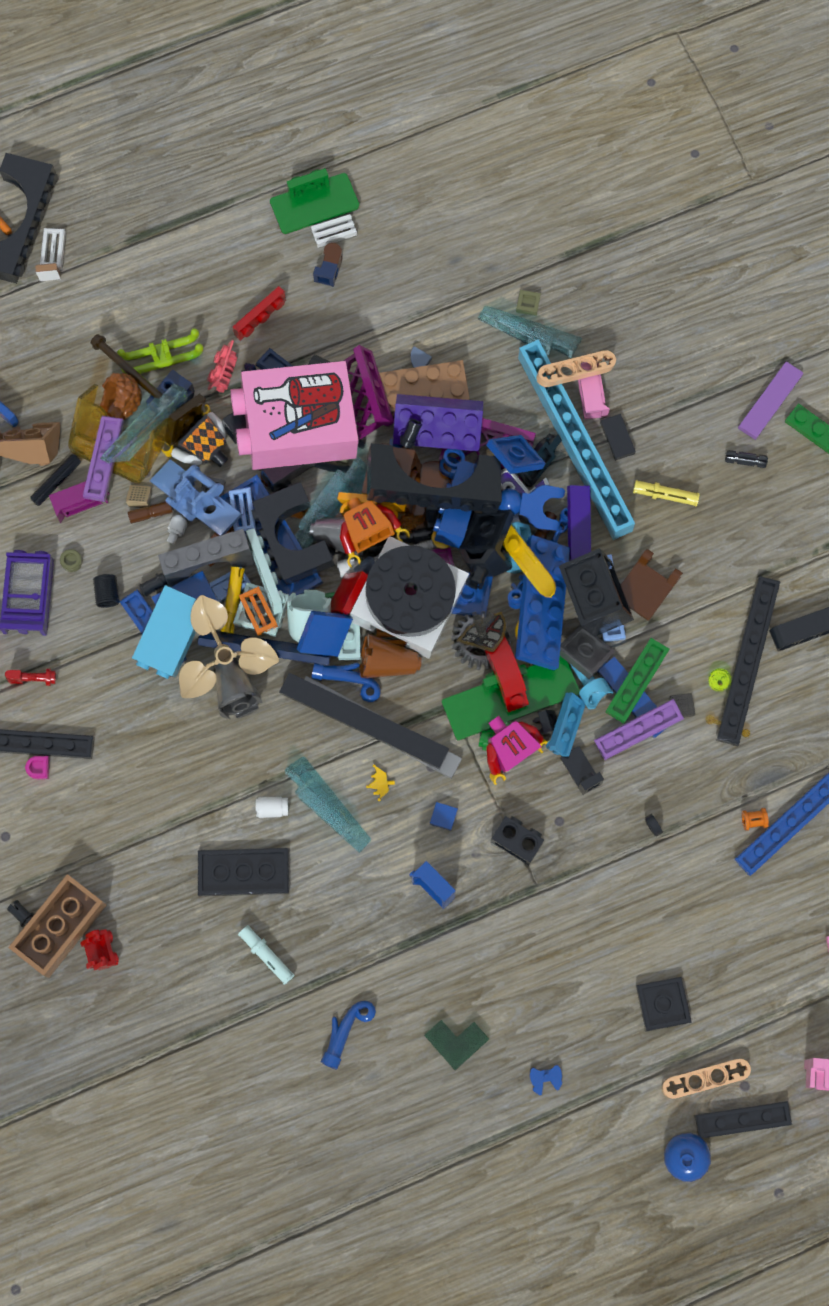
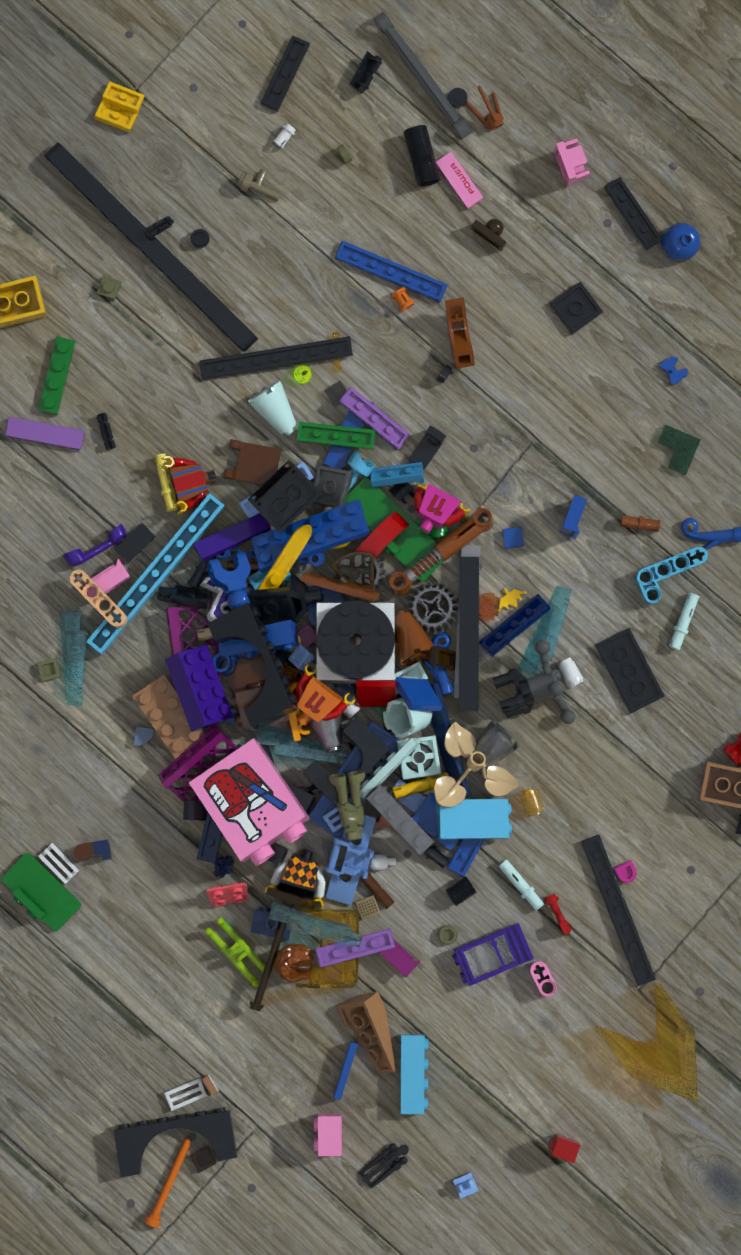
camera: 115 degrees left, 10 degrees up
(55, 480) = (386, 983): black axle -> none
(71, 657) = (521, 885): none -> light aqua pin
(158, 703) = (531, 801): none -> clear yellow brick
(240, 511) = (350, 813): none -> olive piece
(259, 313) = (165, 886): red plate -> none
(265, 628) = (433, 744): orange tile -> none
(271, 758) = (534, 688): none -> wheel
(325, 967) = (672, 569): none -> medium azure beam
(349, 773) = (514, 625): none -> clear blue brick
(350, 679) = (443, 658): none -> dark brown tile
(387, 757) = (487, 610): none -> clear orange piece
(394, 958) = (640, 523): none -> dark orange pin
(410, 434) = (227, 703): black pin -> none
(417, 691) = (441, 593): none -> flat silver gear
(421, 537) = (301, 657): none -> light blue tile
(464, 734) = (443, 550): none -> dark orange piece
(476, 605) = (340, 586): none -> dark orange tile
(514, 845) = (509, 472): black brick -> none
(515, 454) = (197, 612): blue tile -> none
(554, 480) = (199, 574): none -> black axle
(629, 375) = (77, 556): none -> dark purple piece
(656, 513) = (189, 482): none -> torso
(691, 861) = (459, 333): none -> dark orange arch
(695, 632) = (275, 408): none -> light aqua cone
(706, 1080) = (619, 251): light nougat beam -> none
(790, 952) = (490, 232): none -> dark brown tile

